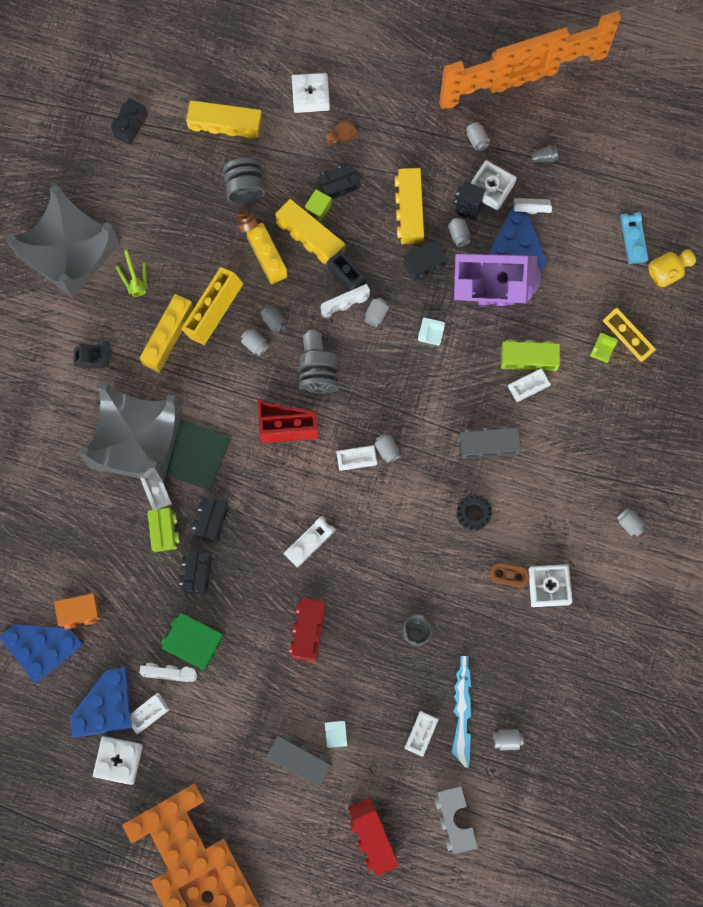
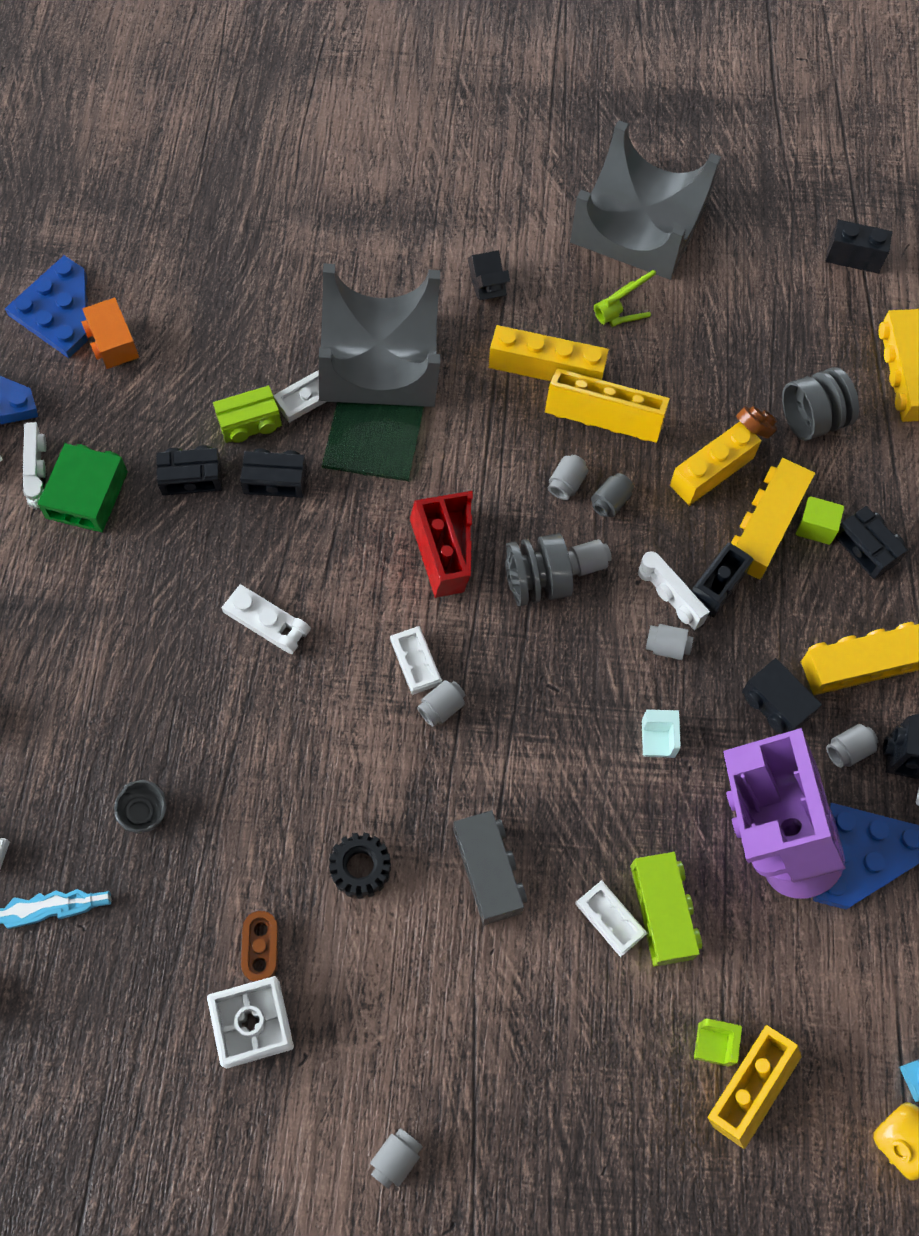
camera: 75 degrees right, 10 degrees down
(307, 630) = (115, 640): red wedge -> none

